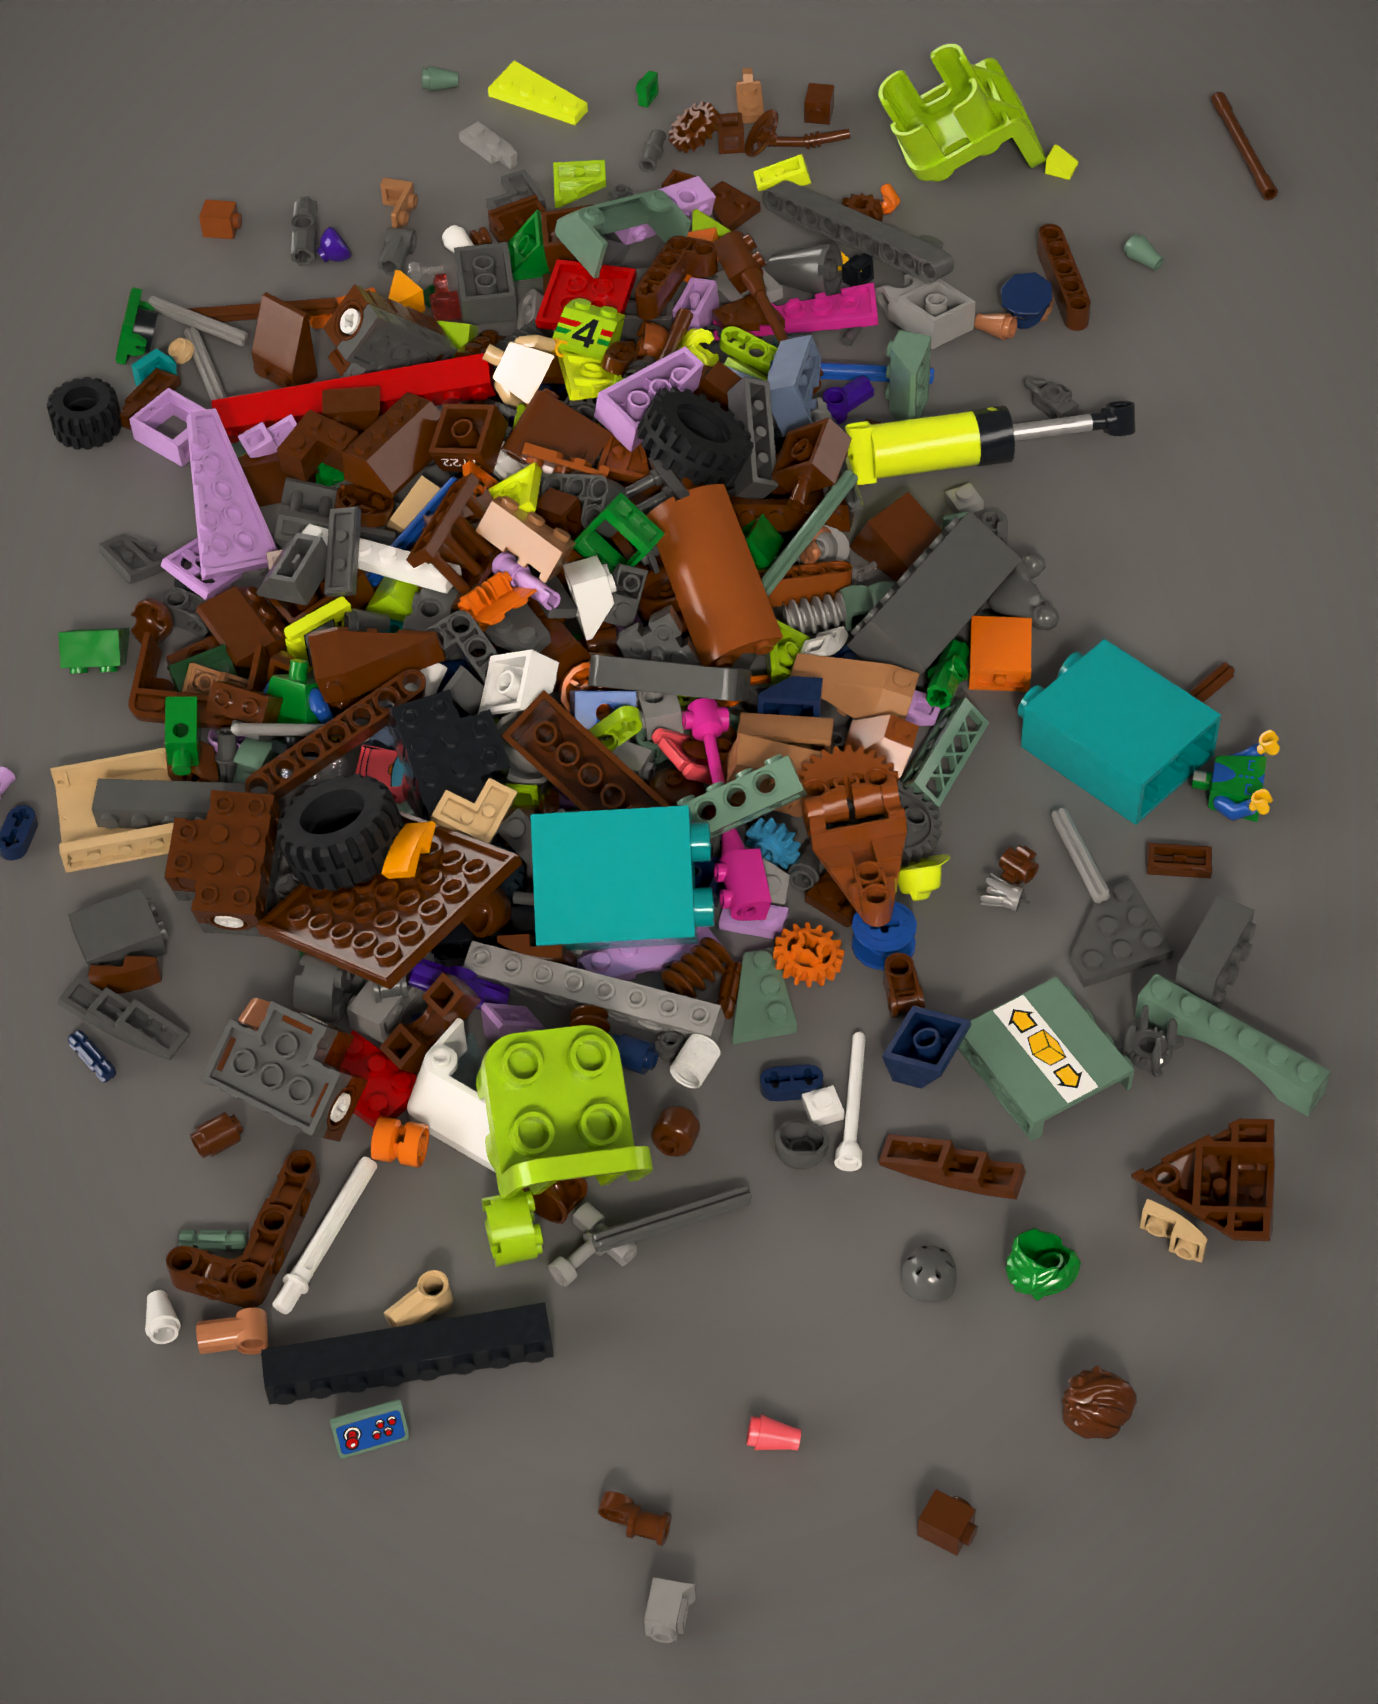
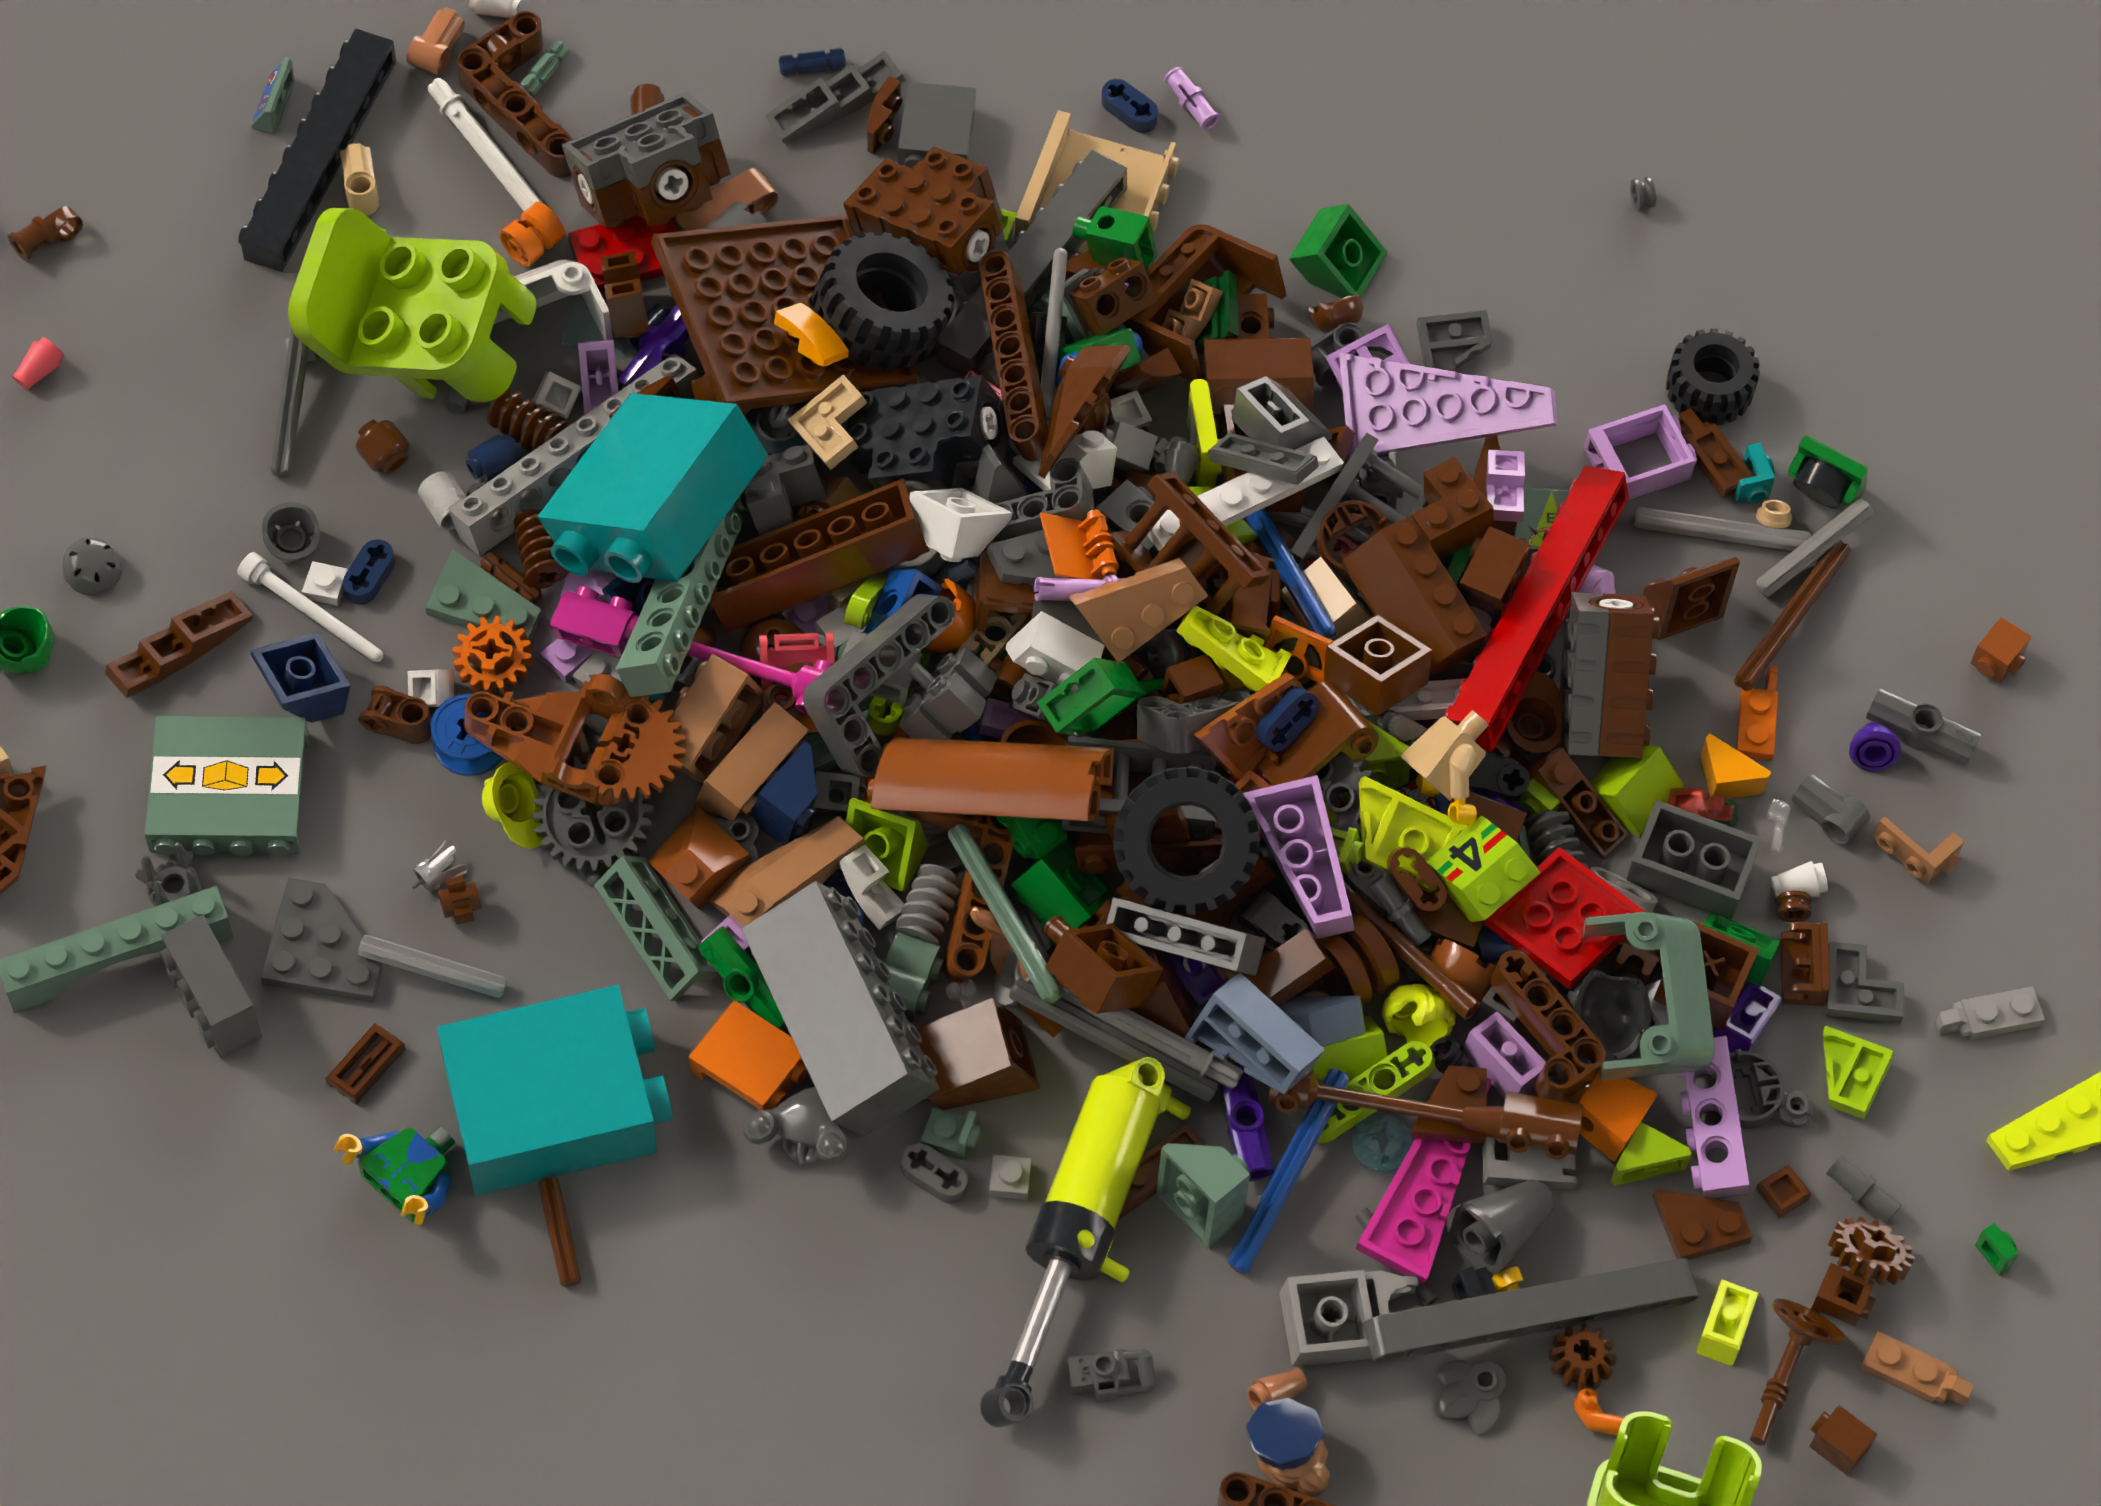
camera: 115 degrees right, 10 degrees up
(547, 441) = (1287, 719): none -> dark blue beam
(861, 984) = (431, 685): none -> white slope

